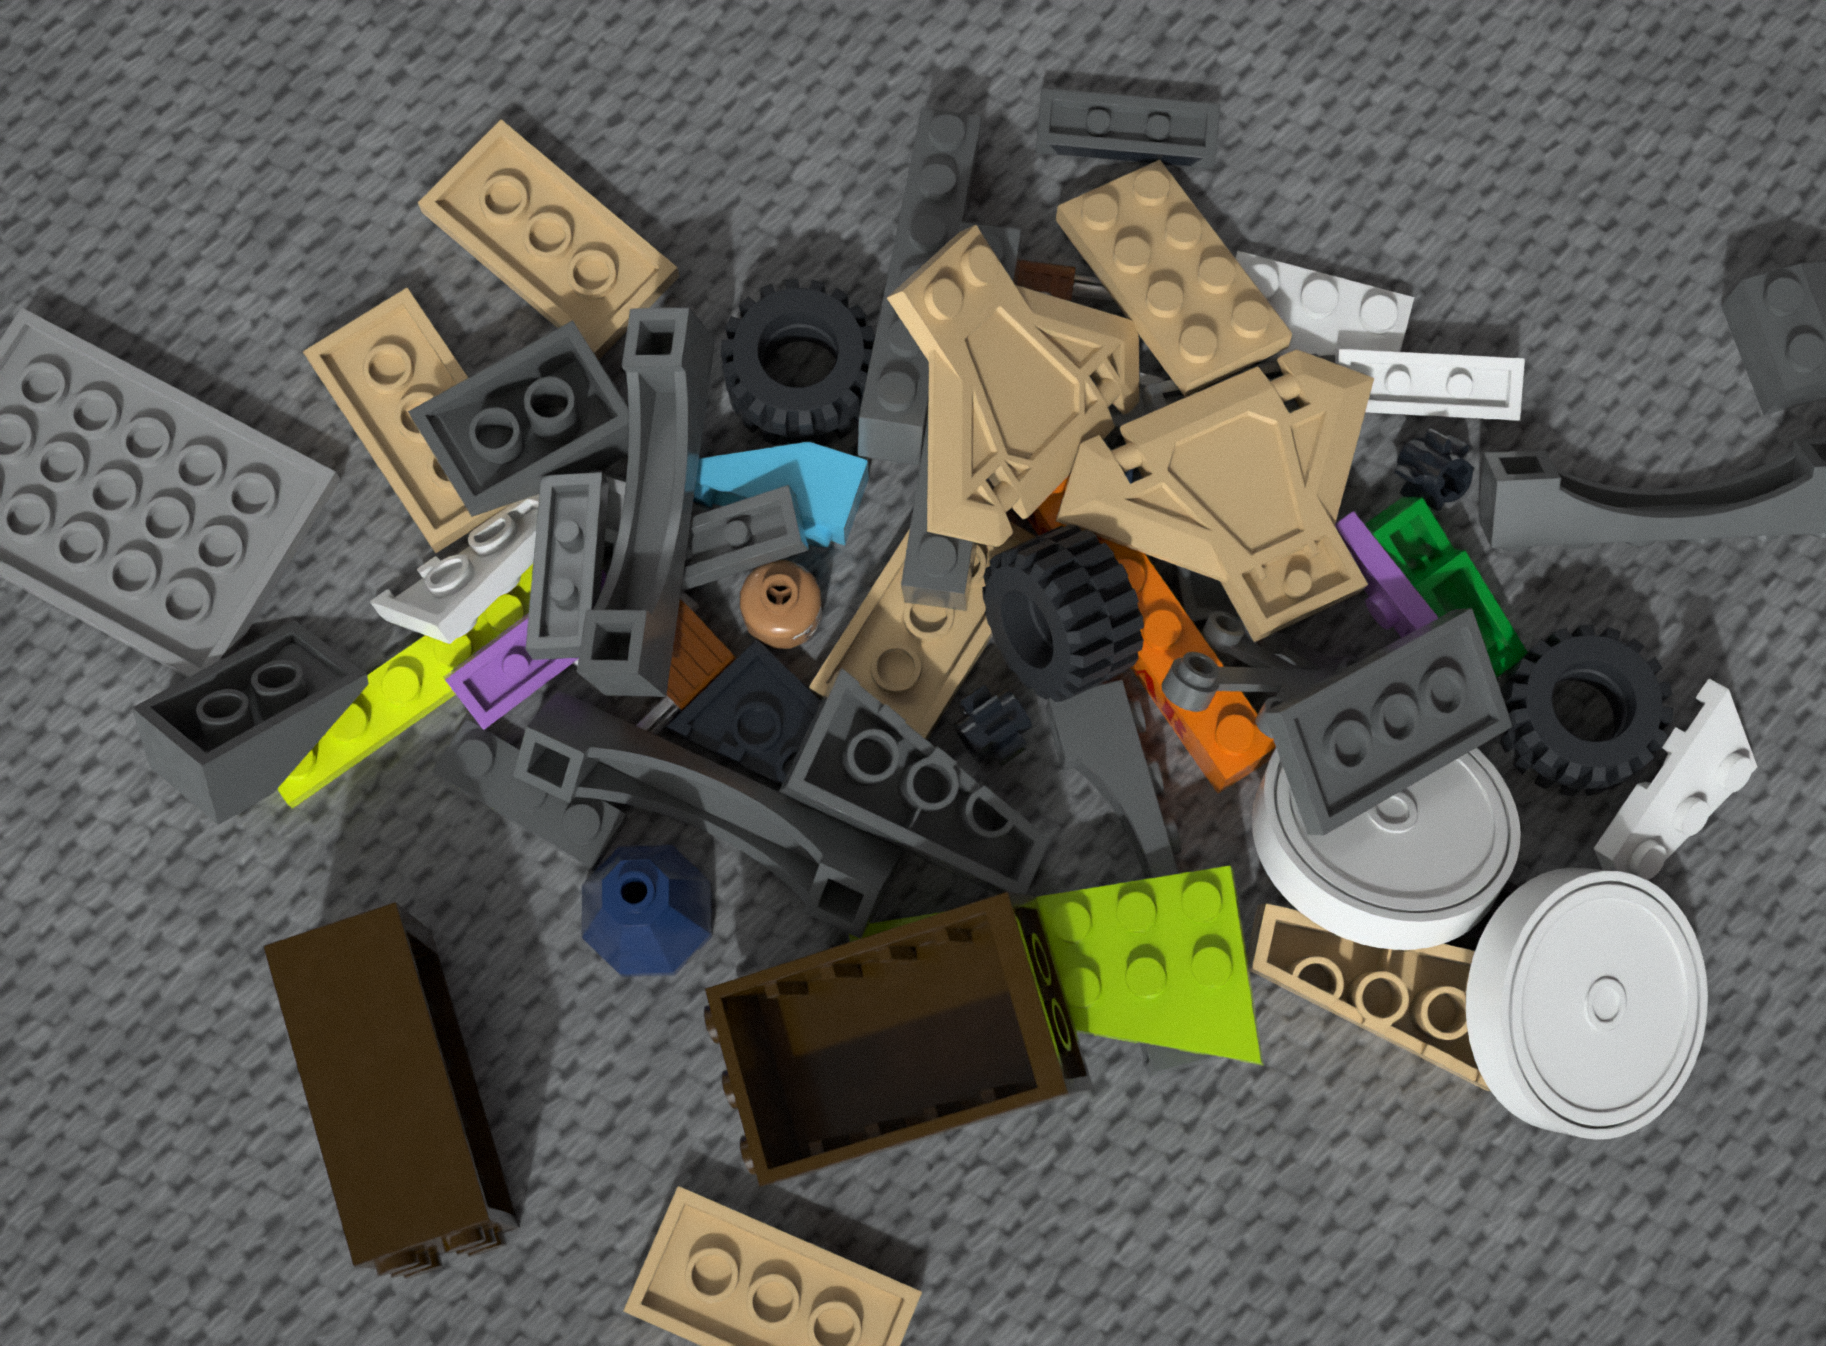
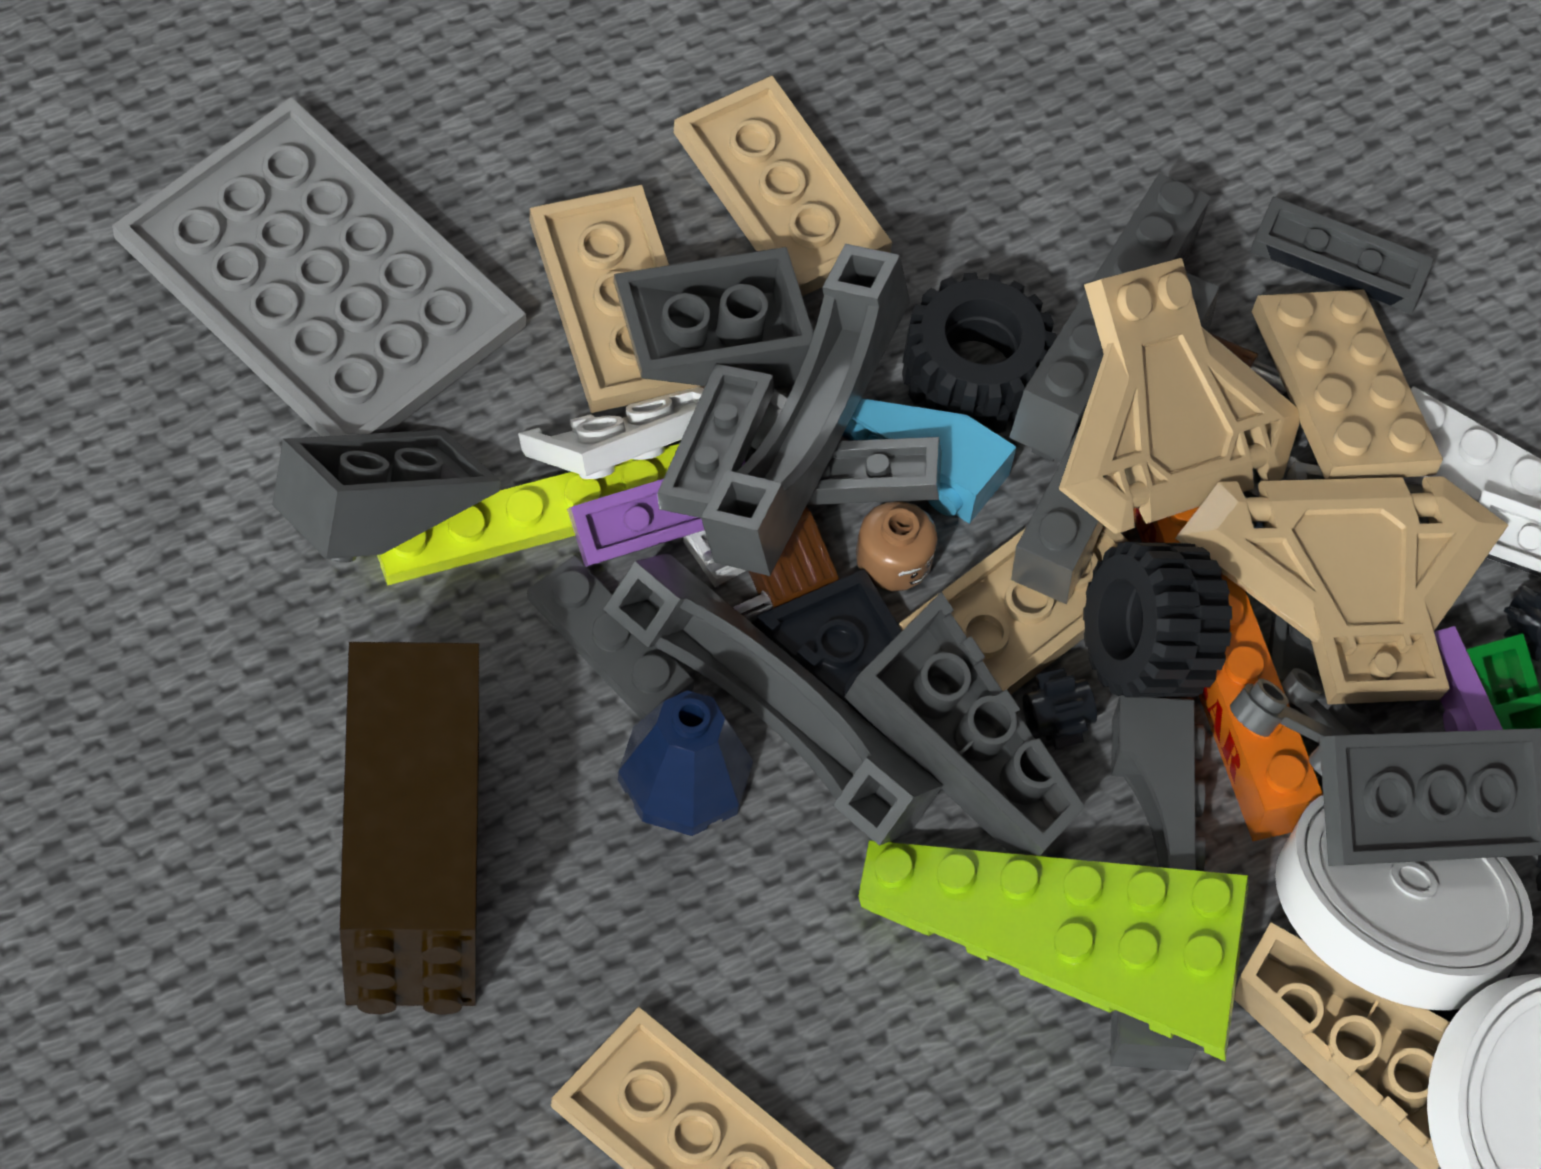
camera: 10 degrees right, 15 degrees down
(896, 1038) = (889, 925): dark brown container -> none

